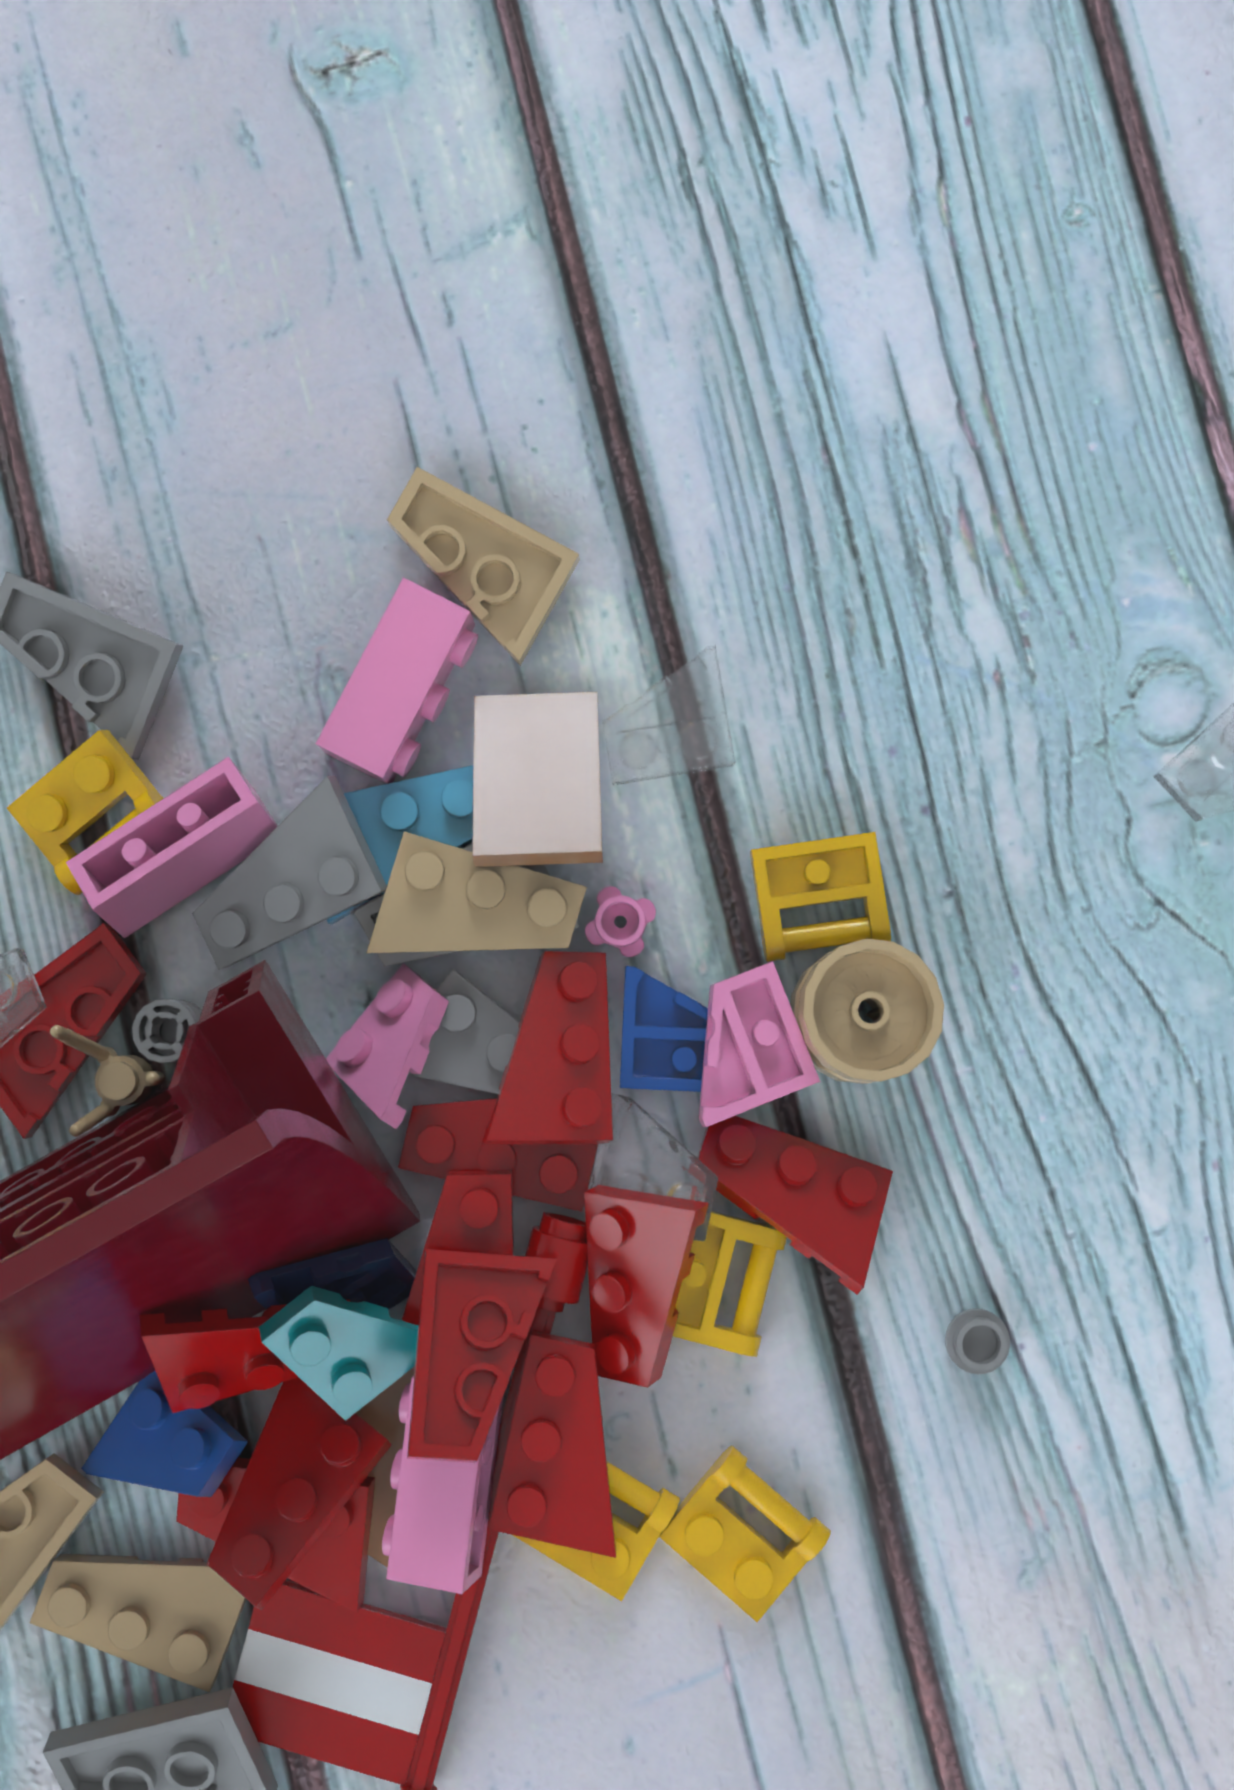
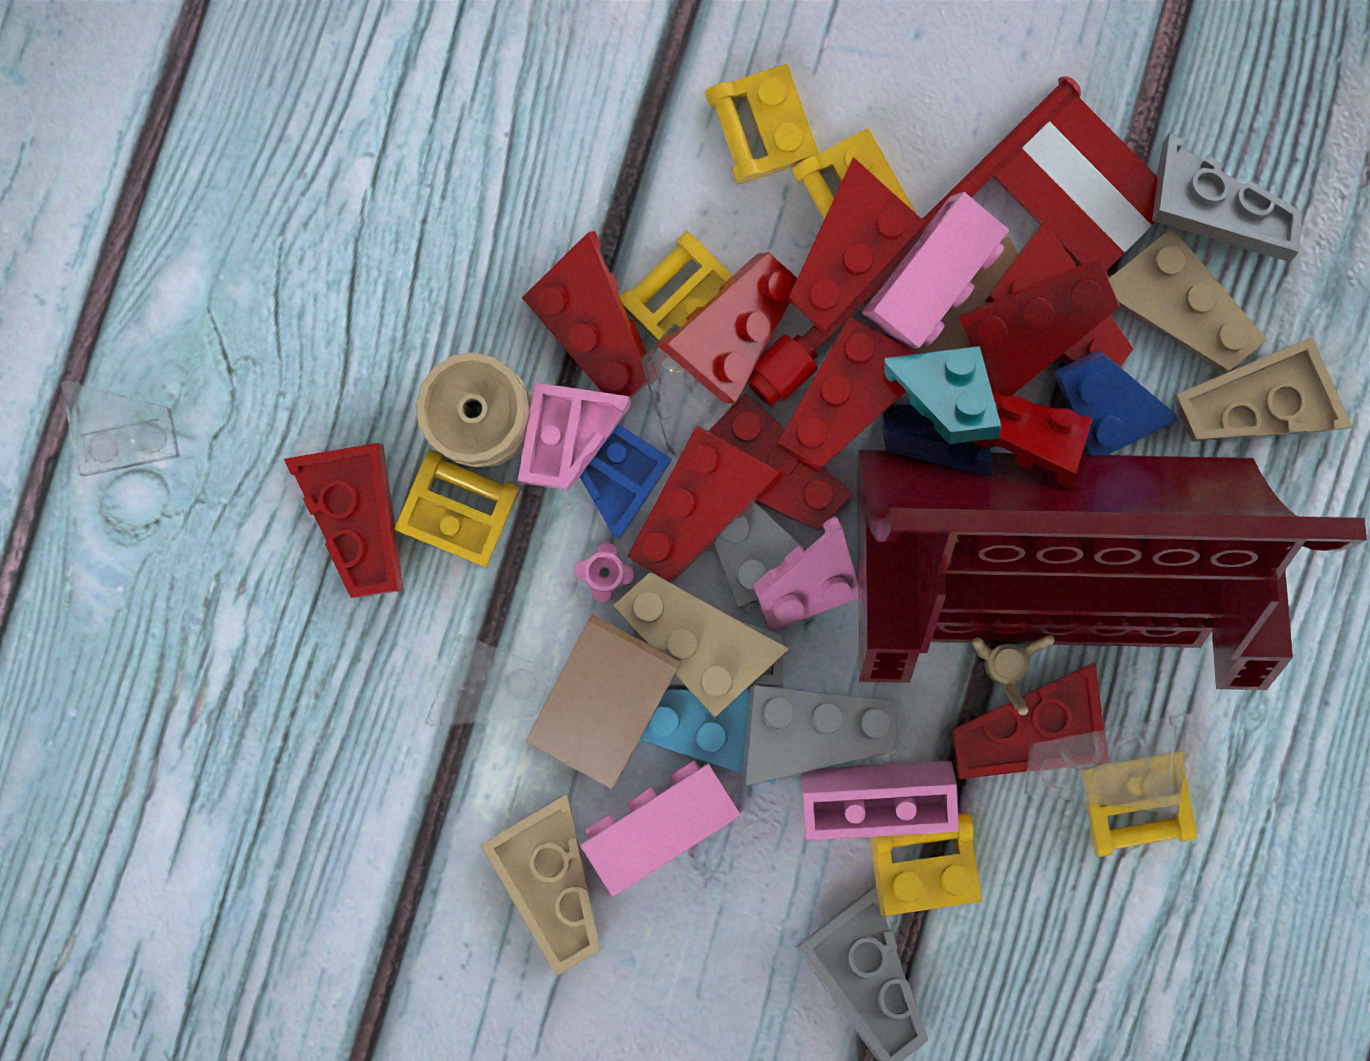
camera: 150 degrees left, 0 degrees up
(175, 1020) = (945, 678): light grey wheel -> none
(467, 1344) = (868, 346): red wing -> none
(929, 827) = (355, 513): none -> red wing
(977, 1341) = (533, 155): light grey plate -> none

